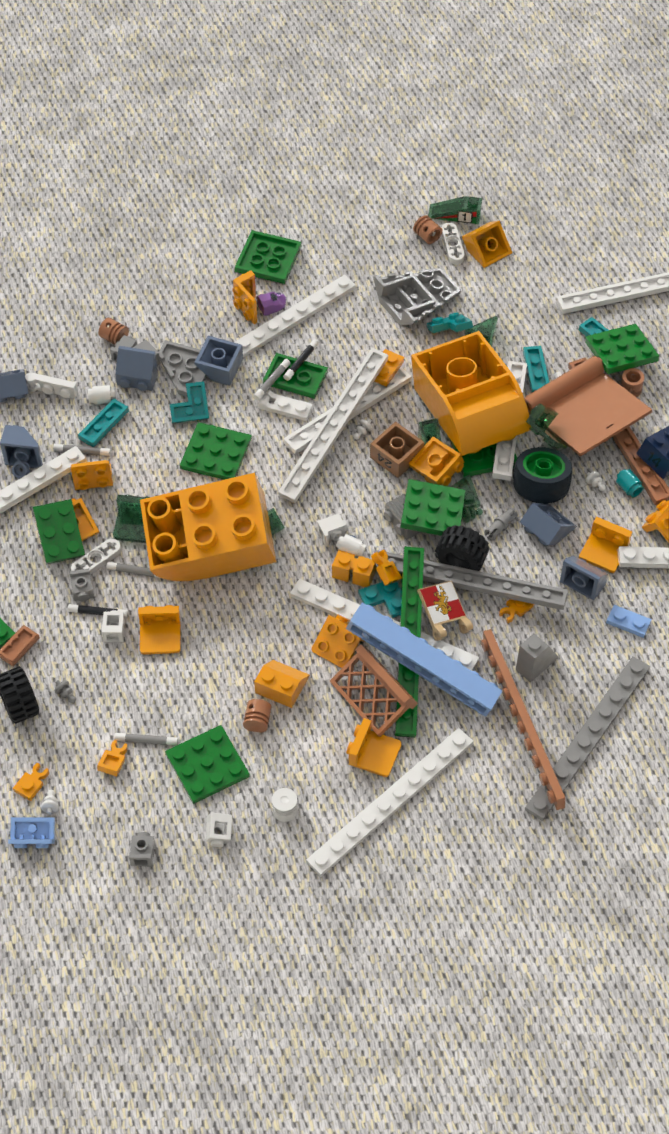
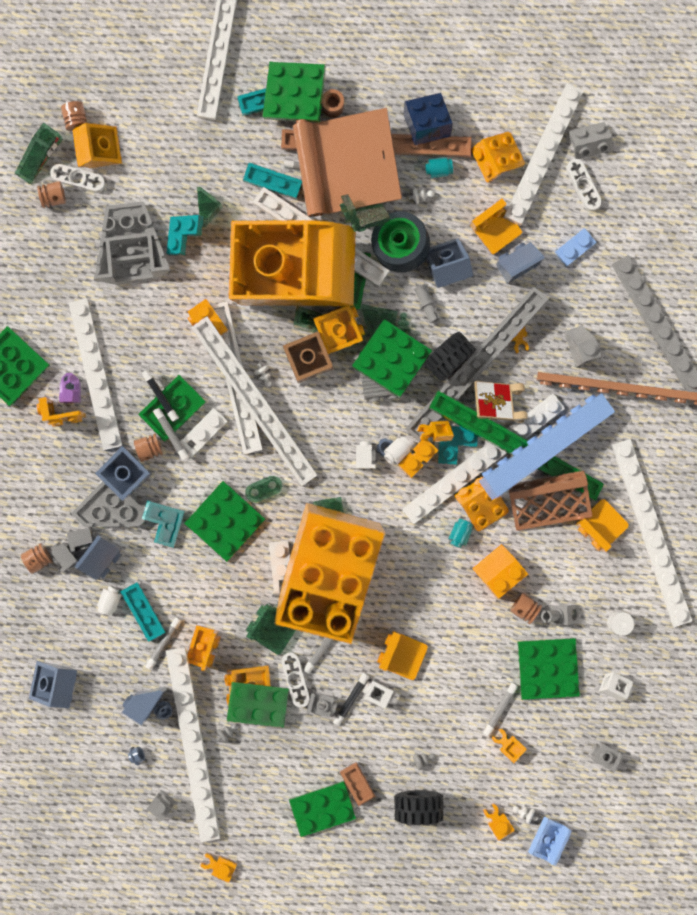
camera: 70 degrees left, 30 degrees up
(22, 526) = (227, 732): none -> light grey hair
(51, 385) = (76, 644): white plate -> none
(252, 370) = (148, 447): none -> nougat piece
(260, 467) = (263, 489): none -> clear green plate
(265, 748) = (560, 615): none -> light grey bracket
(301, 633) = (460, 533): none -> teal brick
(506, 221) = (73, 114): none -> nougat piece

